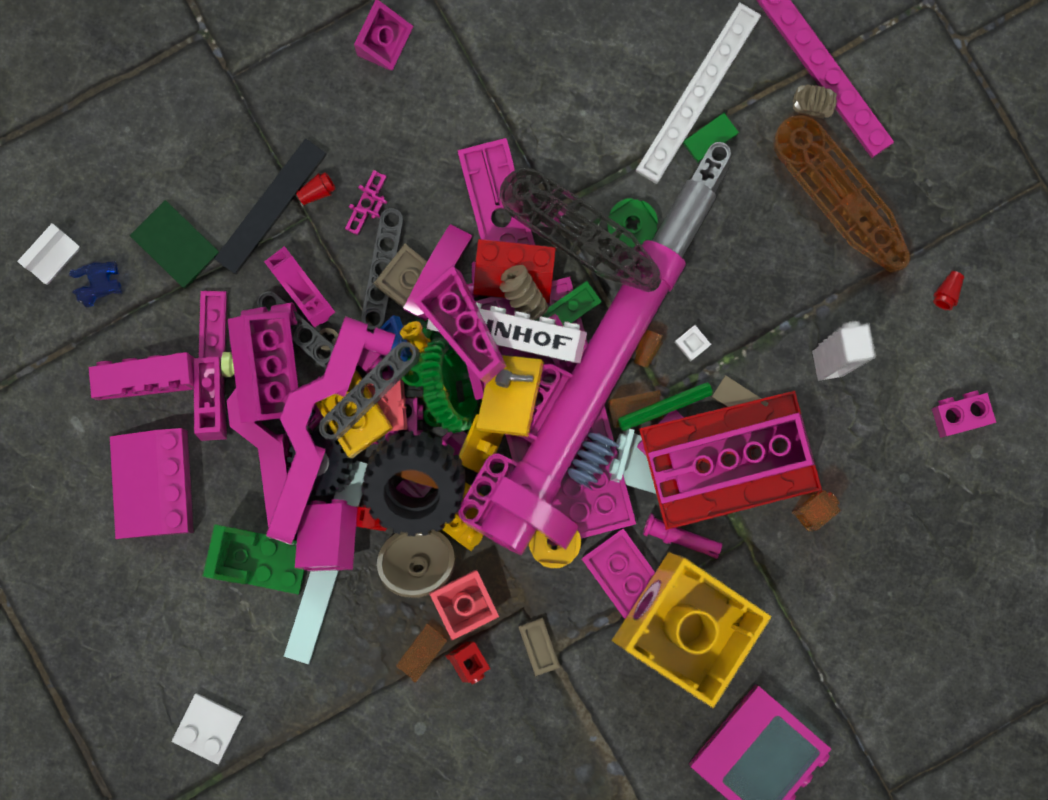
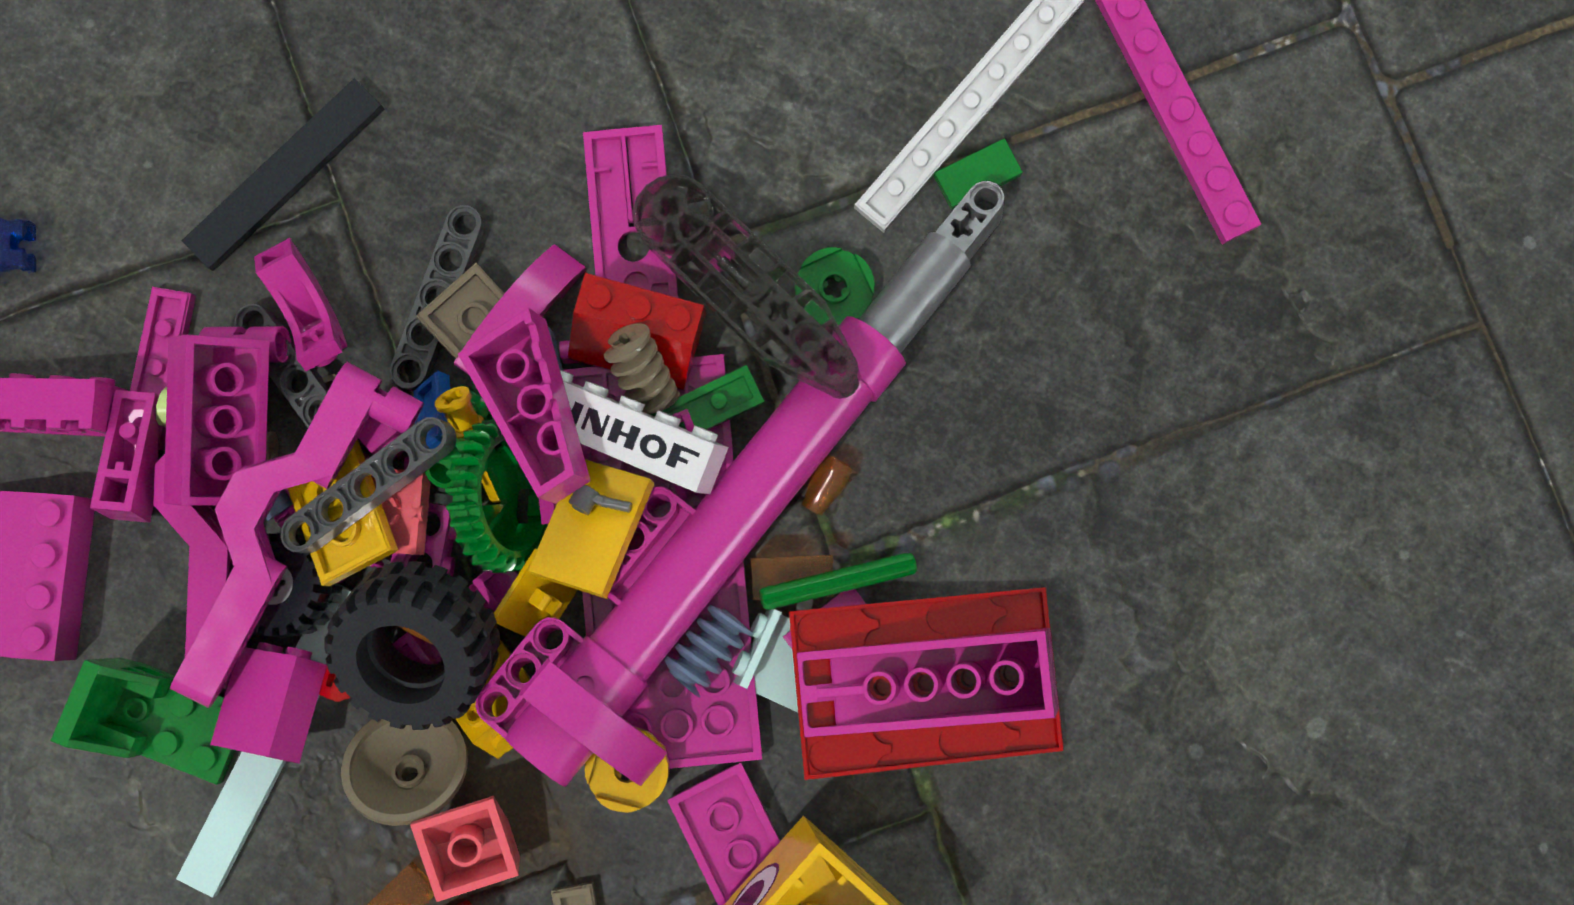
camera: 10 degrees right, 0 degrees up
(174, 244) = (126, 209): dark green tile -> none
(316, 189) = (358, 157): red cone -> none
(366, 211) = (443, 185): dark pink piece -> none
(682, 537) = (839, 795): dark pink pin -> none
(692, 343) = (898, 488): white plate -> none
(731, 393) = (947, 577): dark tan tile -> none
(814, 101) = (1148, 141): dark tan gear -> none
(817, 510) = (1051, 786): clear orange brick -> none
(843, 351) = (1134, 543): white brick -> none
(854, 204) = (1182, 312): clear orange beam -> none
(949, 291) = (1311, 471): red cone -> none
(964, 418) = (1305, 674): dark pink brick -> none

